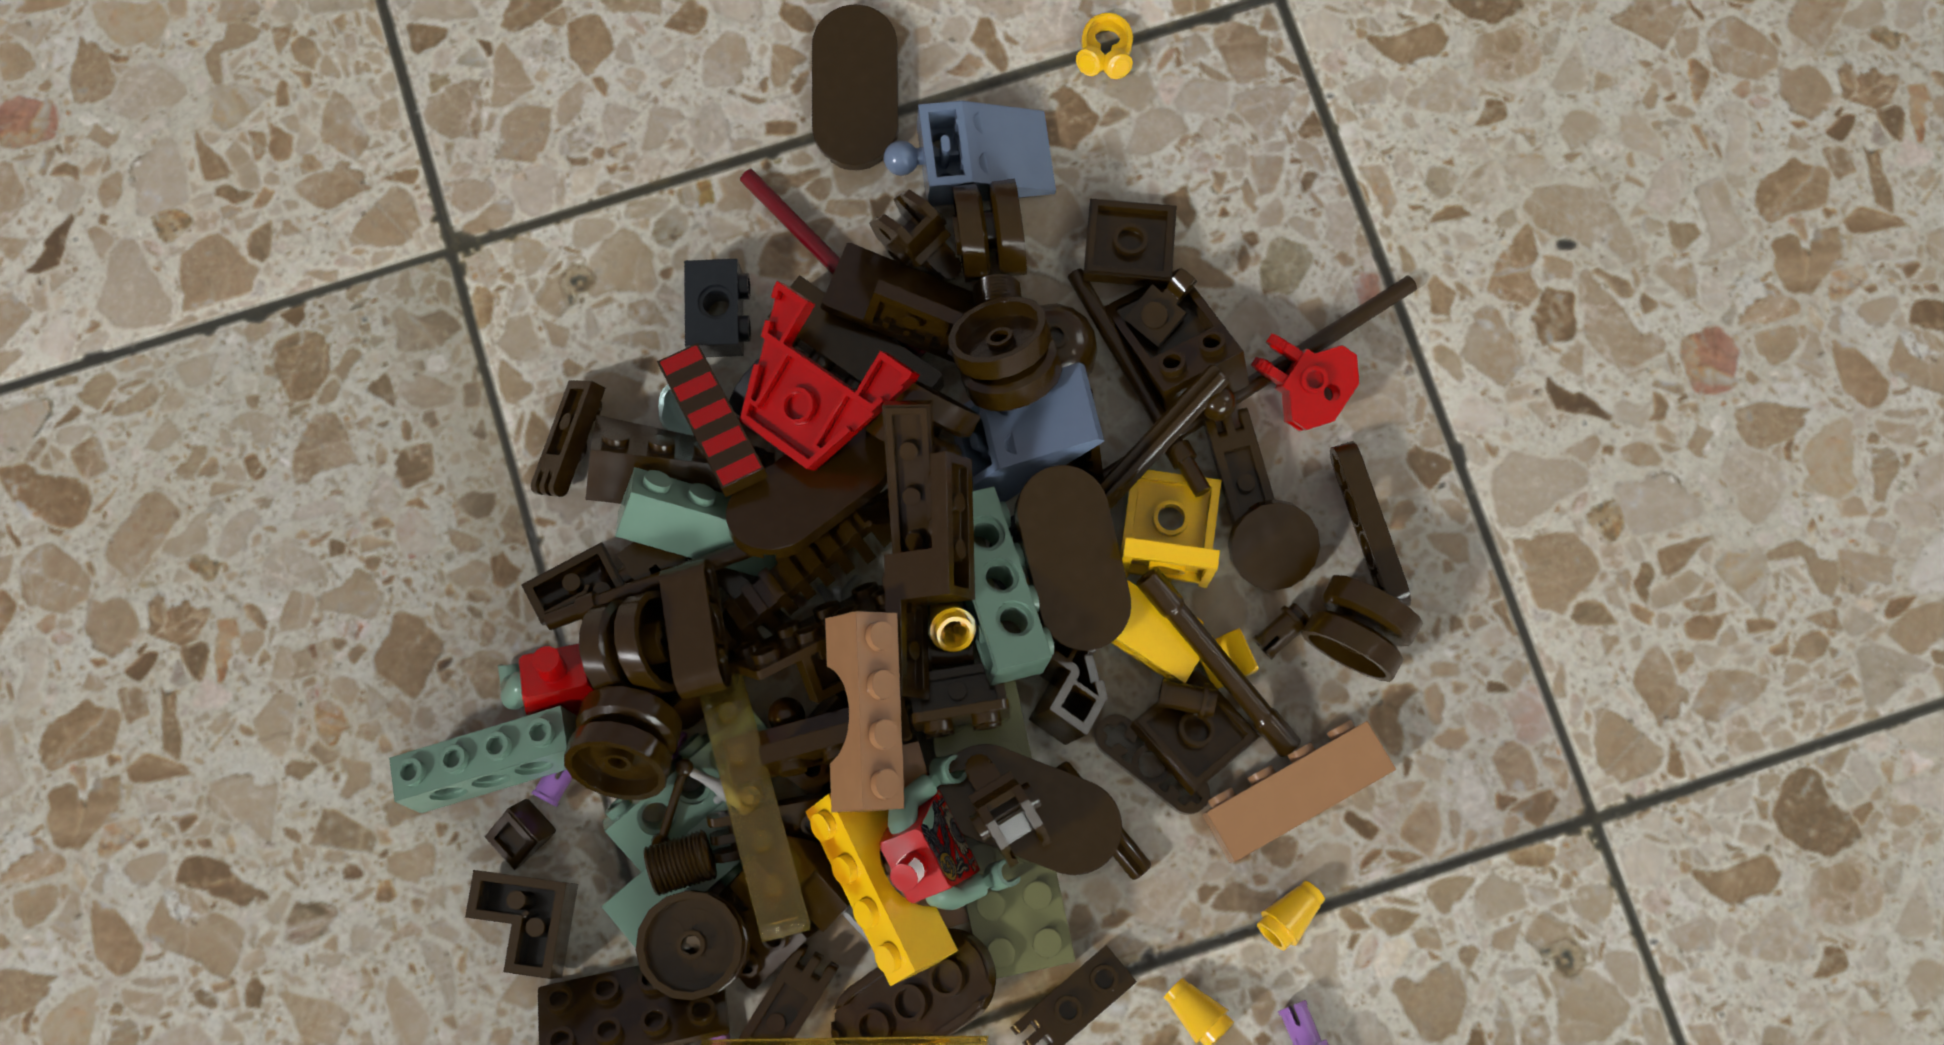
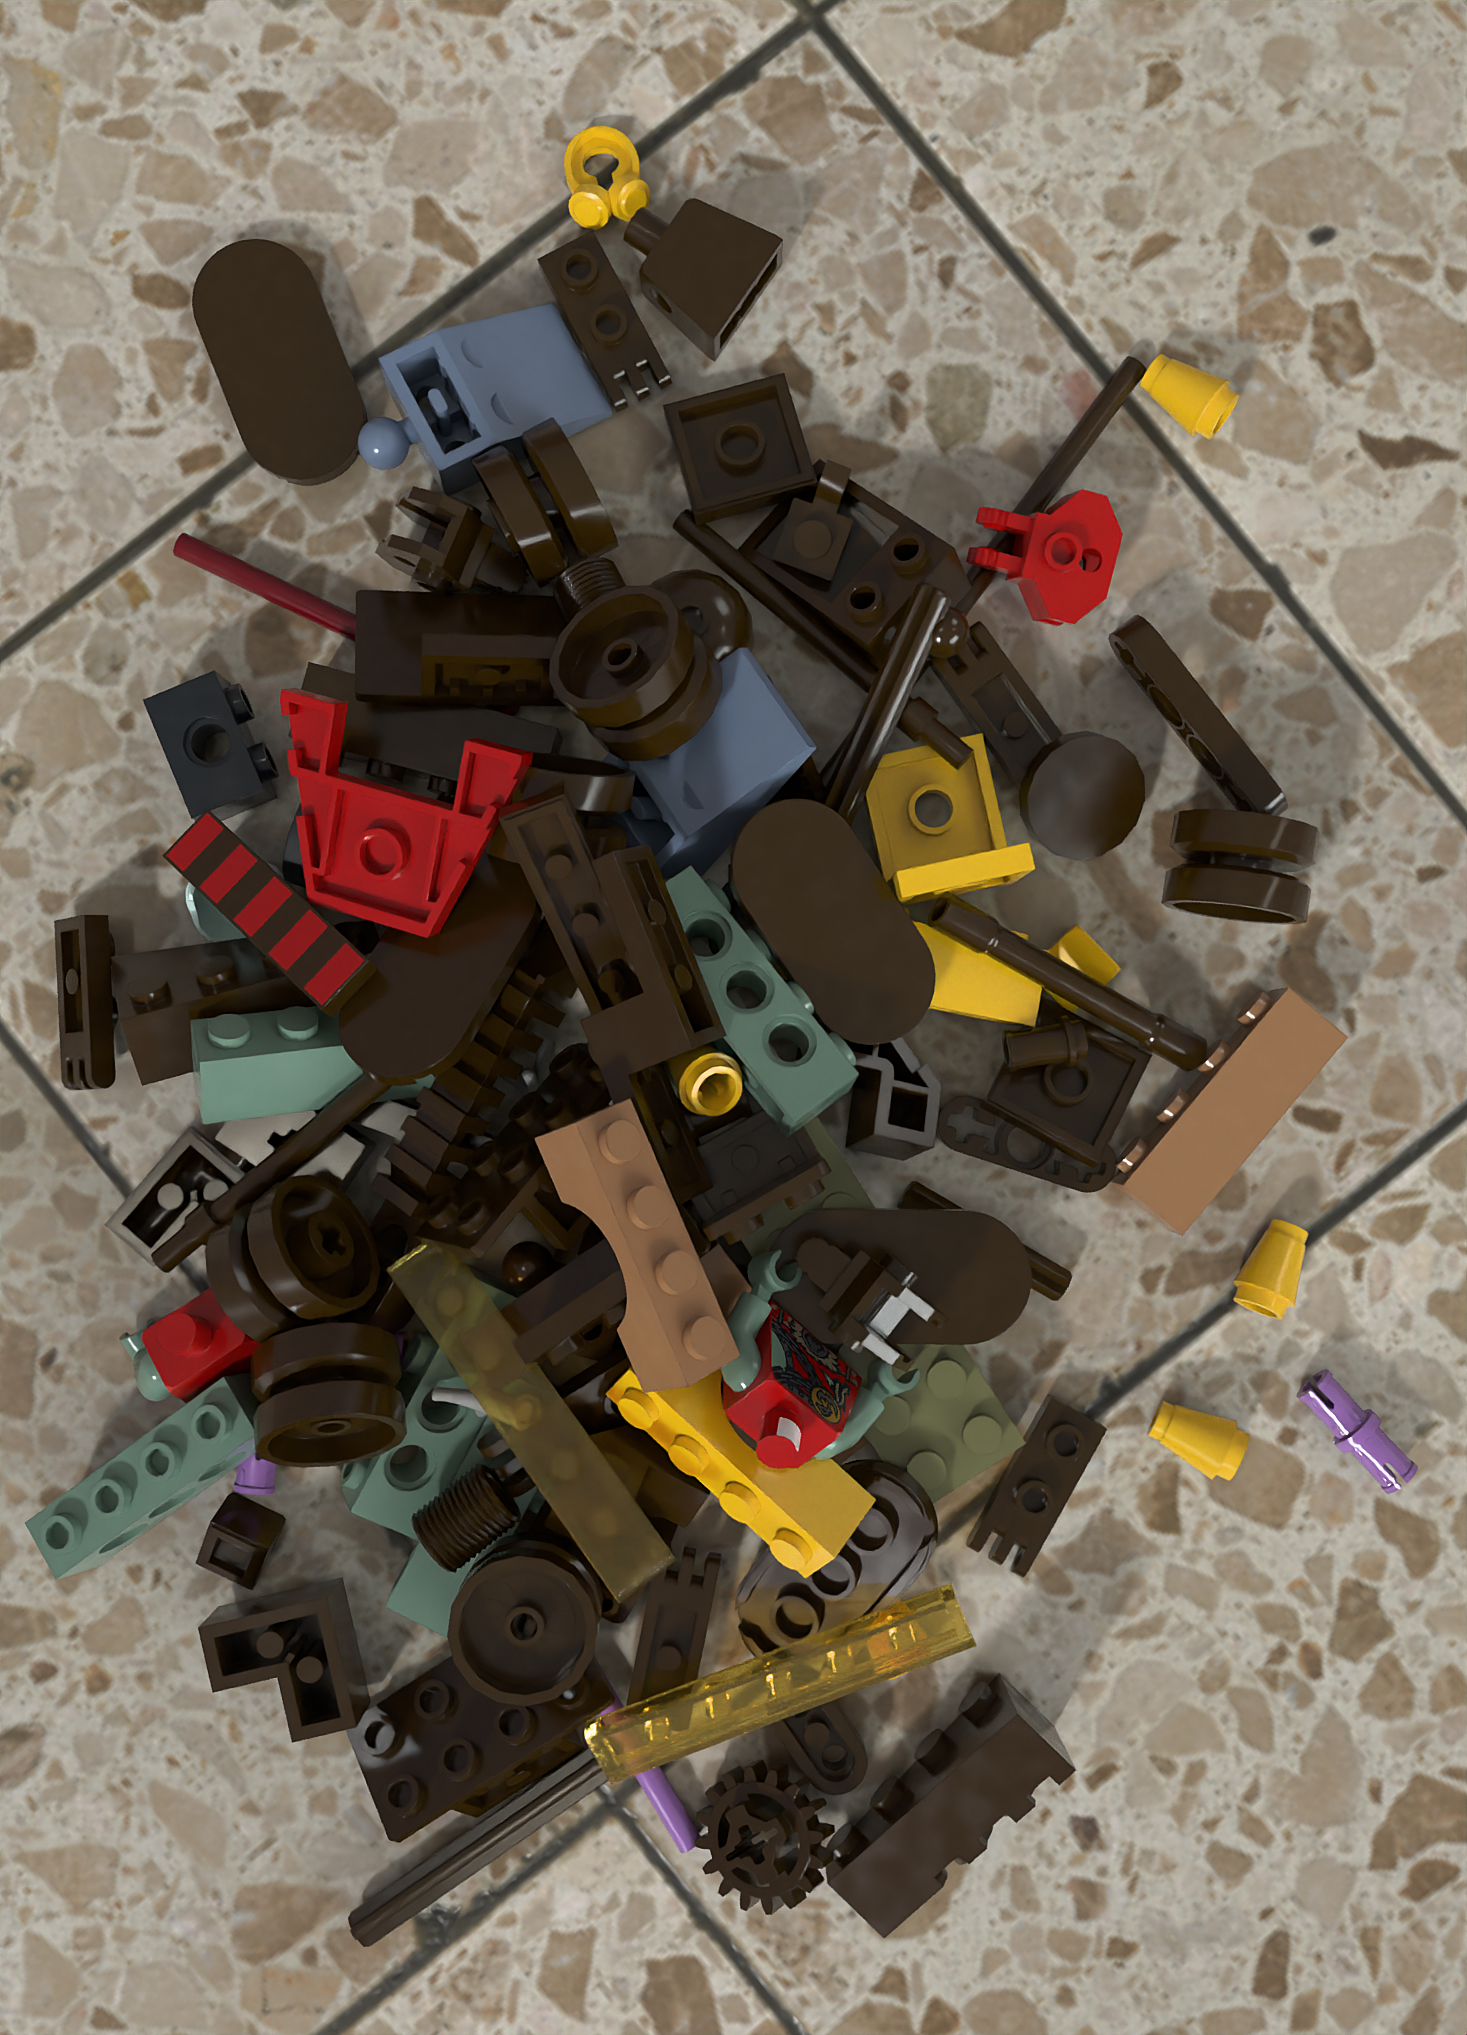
camera: 30 degrees left, 10 degrees up
(683, 769) = (421, 1394): dark brown hinge -> none
(695, 628) = (362, 1210): dark brown beam -> none
(1072, 132) = (603, 318): none -> dark brown hinge
(1148, 124) = (704, 269): none -> dark brown torso
(1281, 630) = (1131, 904): dark brown pin -> none
(1440, 314) = (1190, 395): none -> yellow cone

